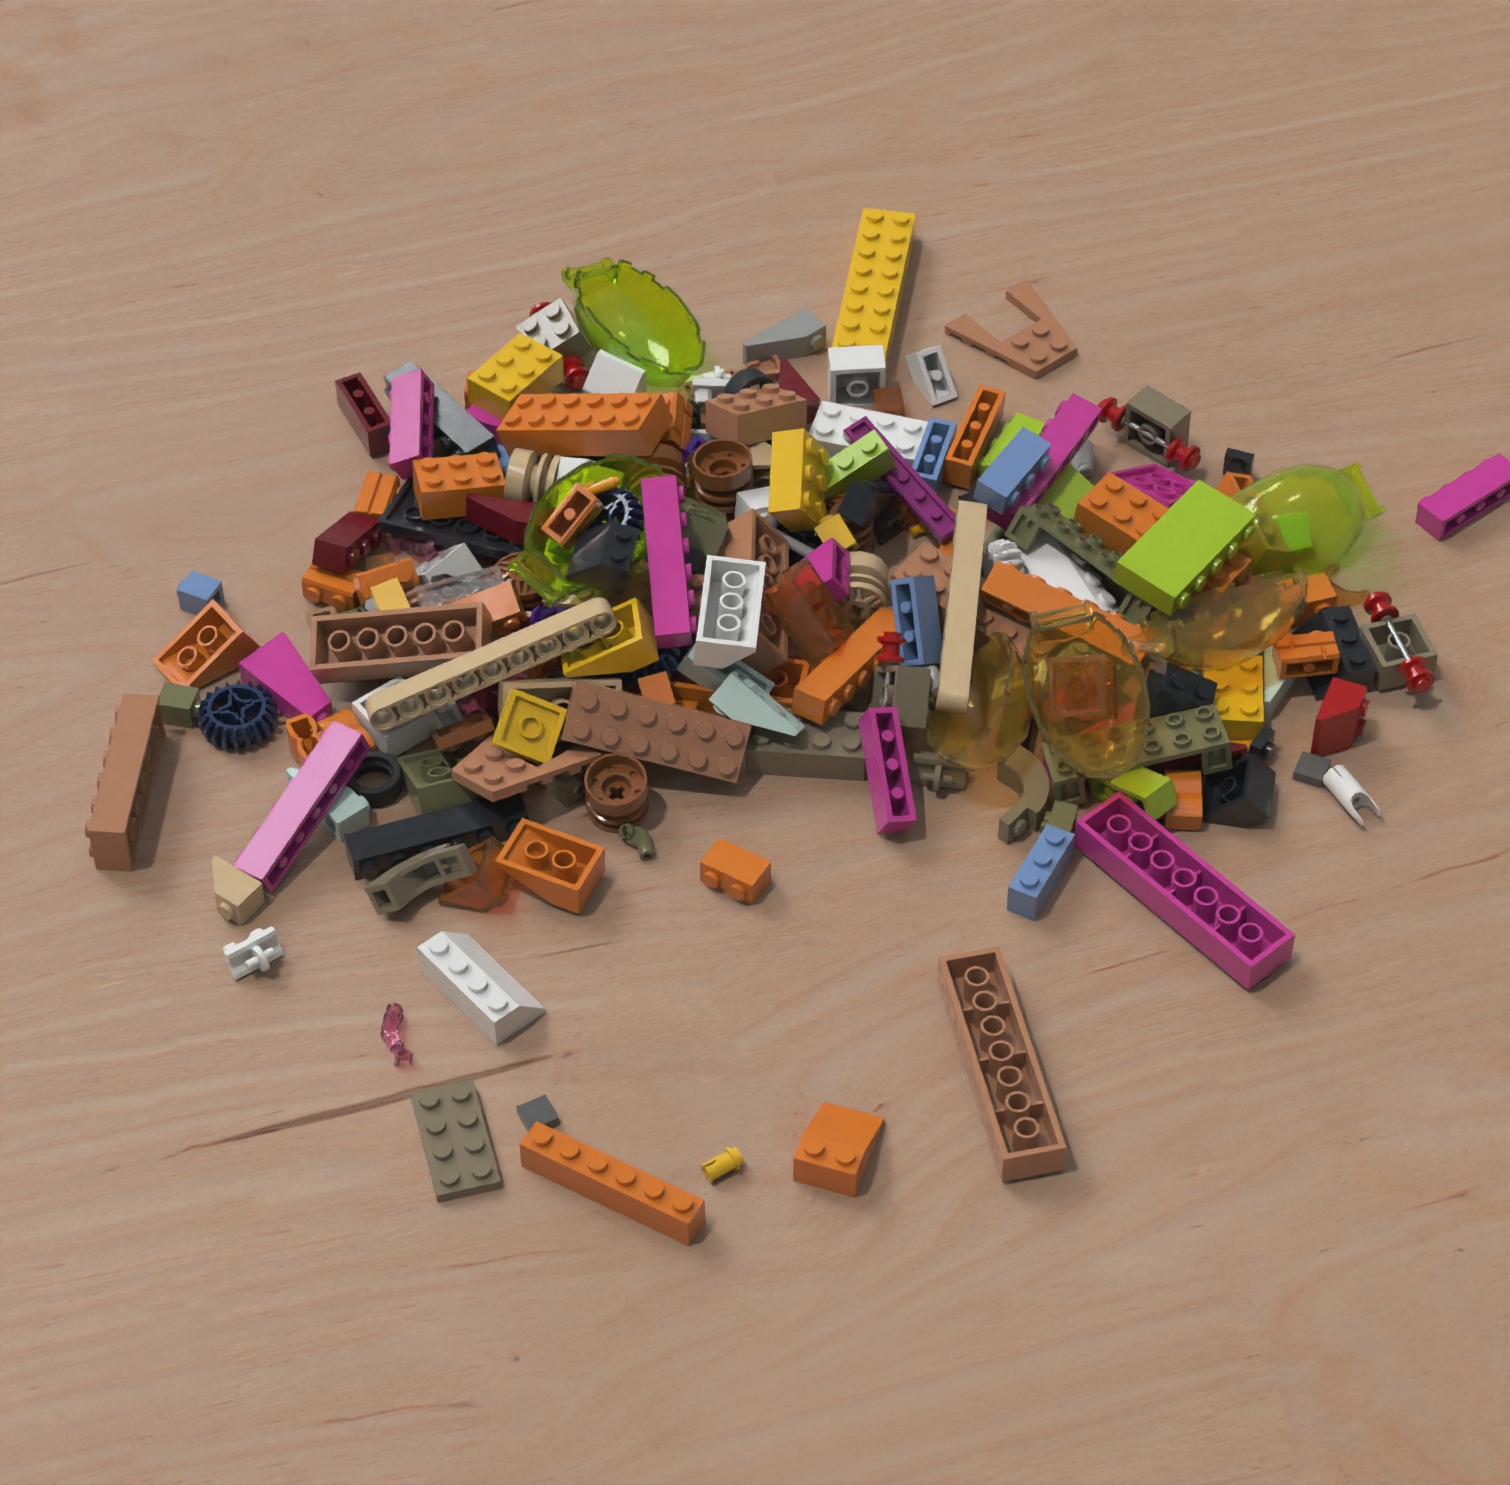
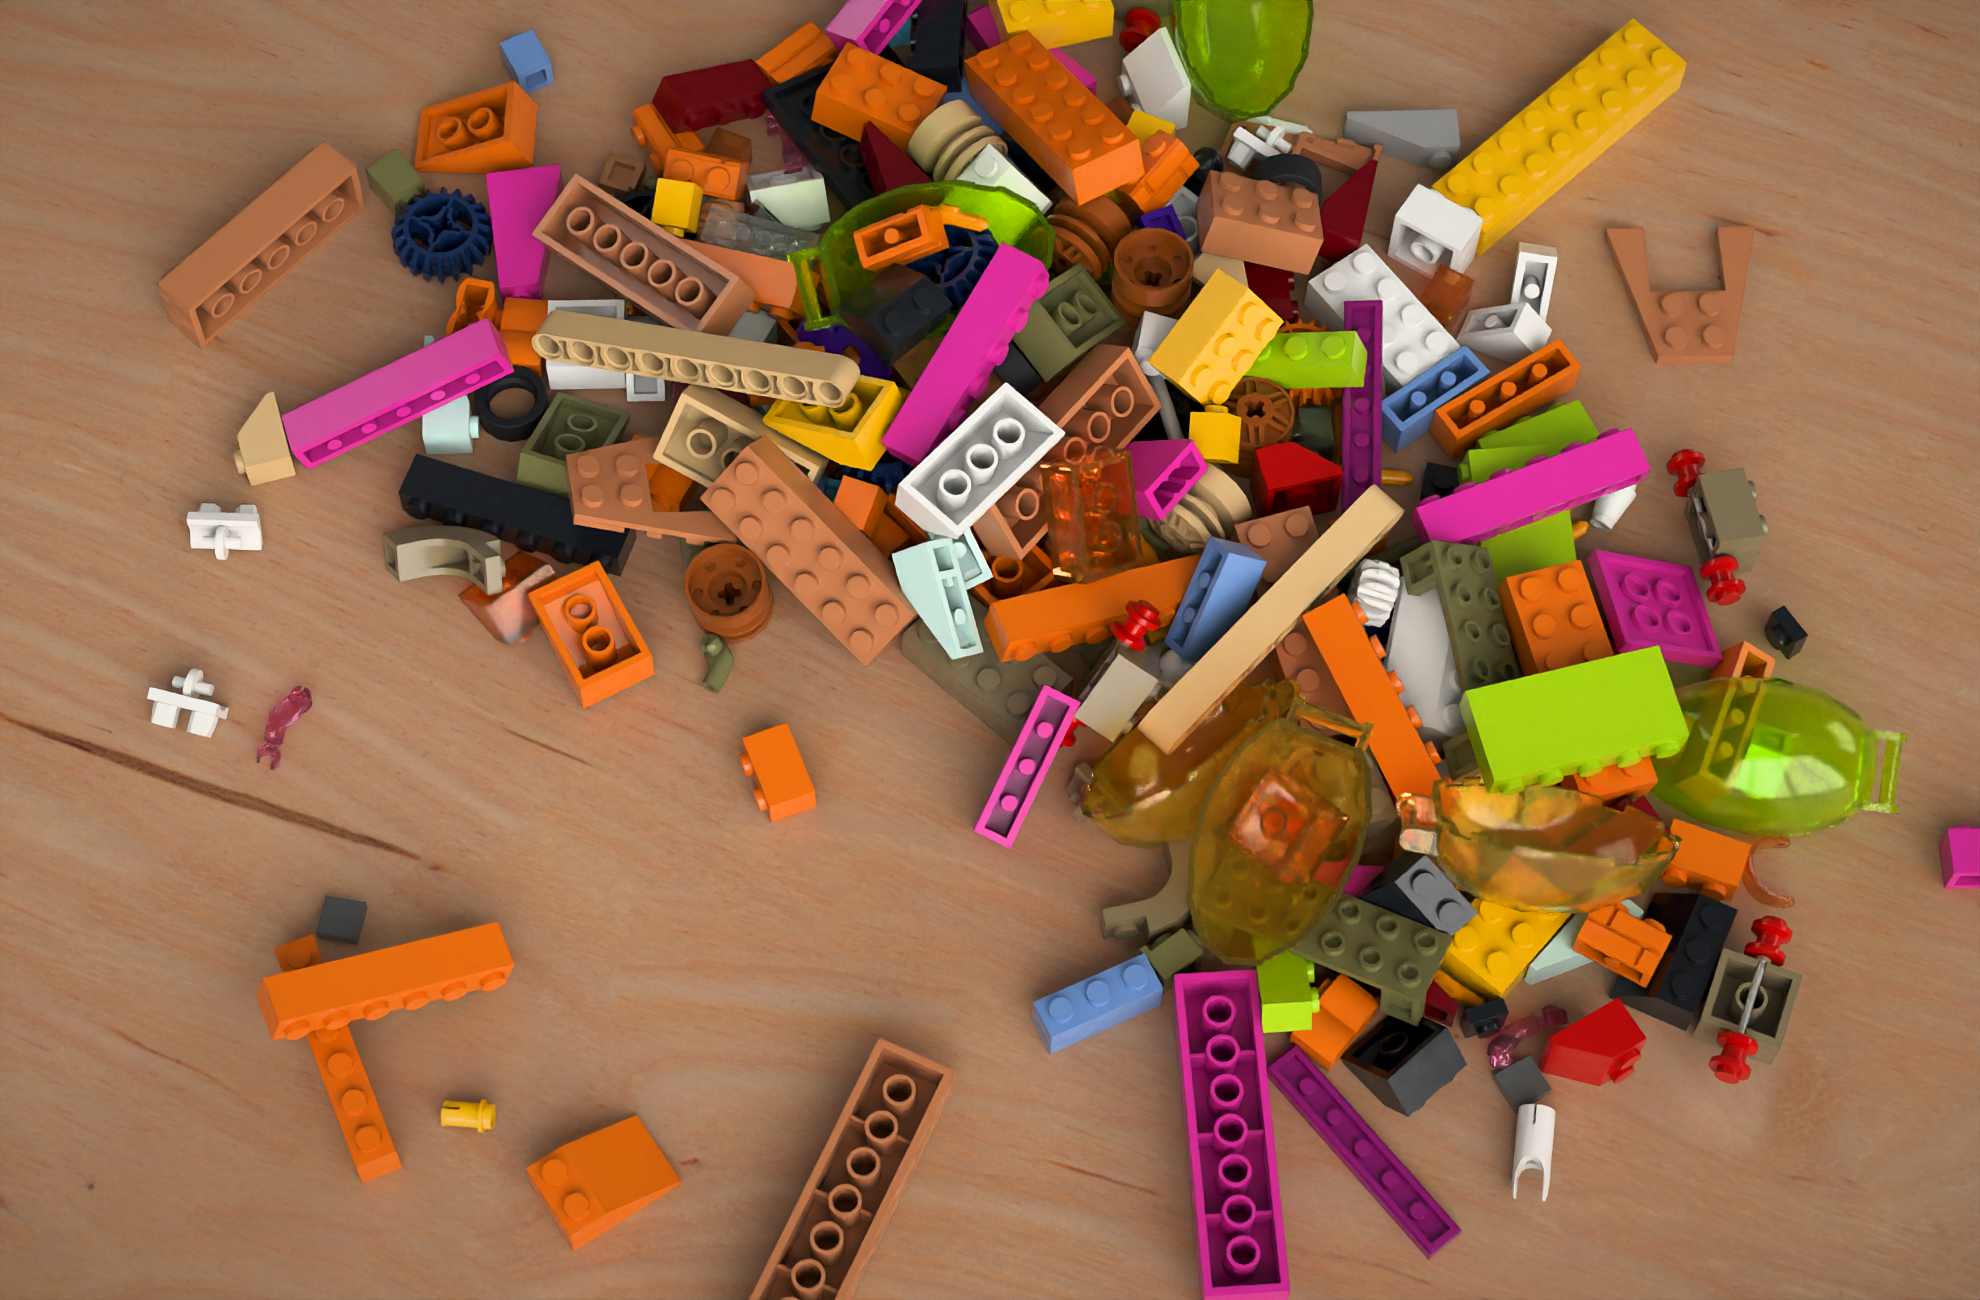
camera: 35 degrees right, 15 degrees up
(321, 1055) = (204, 713): none -> white hips
(451, 736) = (631, 409): dark orange plate -> none
(455, 1141) = (239, 891): dark tan plate -> none
(477, 985) = (412, 723): white slope -> none
(529, 727) = (677, 459): yellow plate -> none
(609, 1114) = (384, 981): none -> orange brick
(866, 500) = (1283, 413): black slope -> none
(896, 537) = (1292, 478): none -> red slope
(942, 401) = (1505, 331): none -> white slope
(1013, 471) = (1466, 488): medium blue brick -> none
(1265, 857) = (1362, 1151): none -> magenta tile
(1283, 750) = (1516, 1031): none -> clear pink arm

